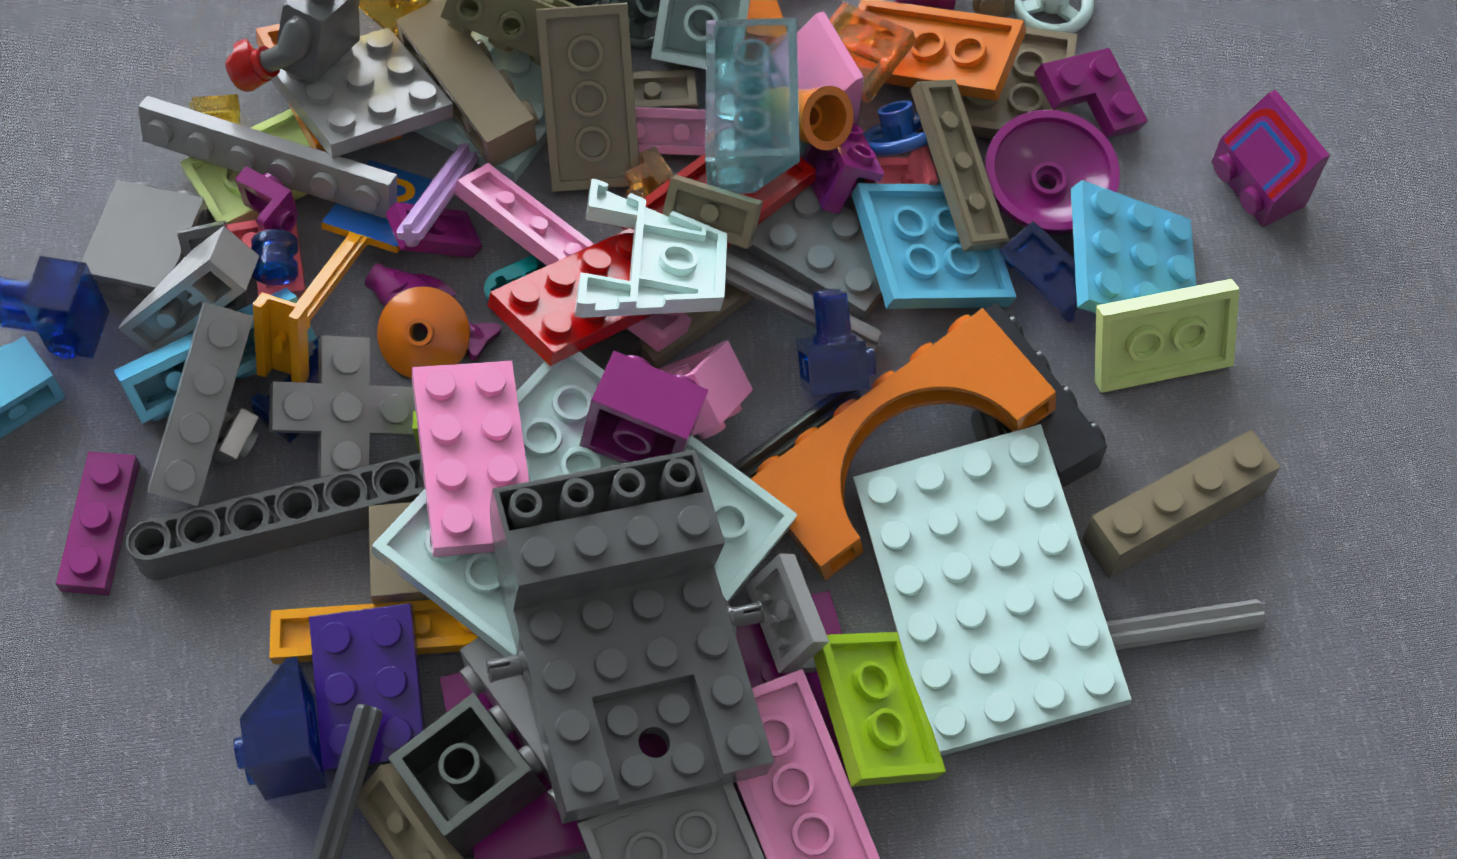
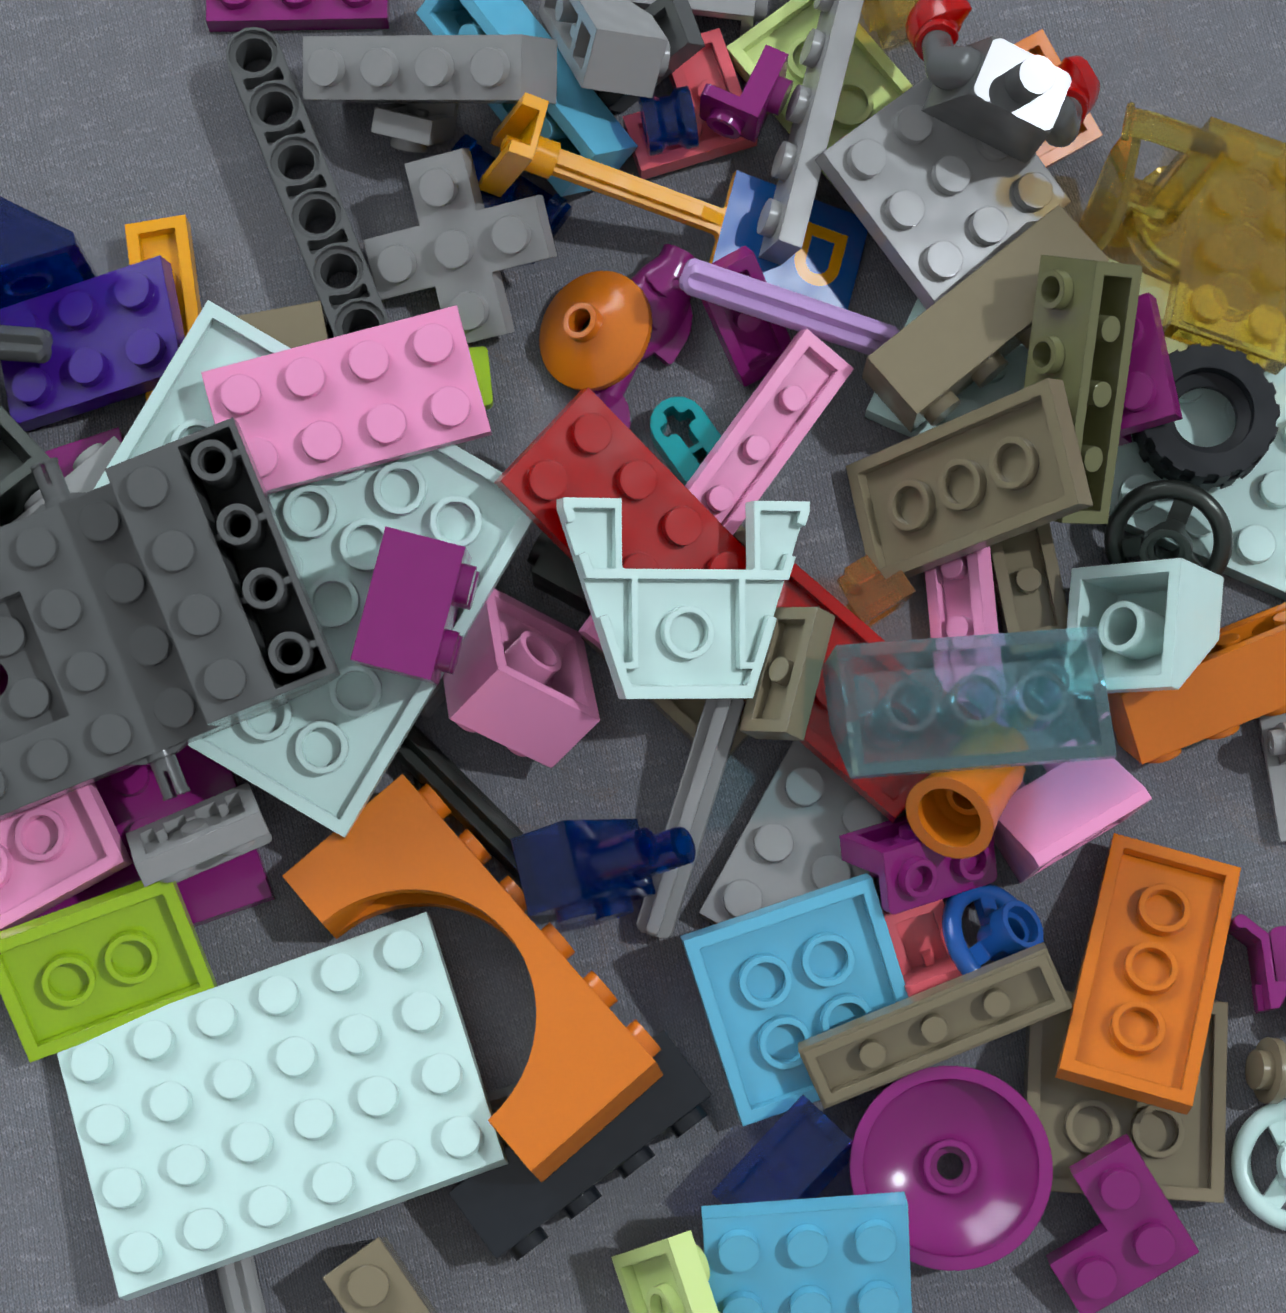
camera: 85 degrees right, 15 degrees up
(873, 44) = (1127, 873): clear orange wing -> none

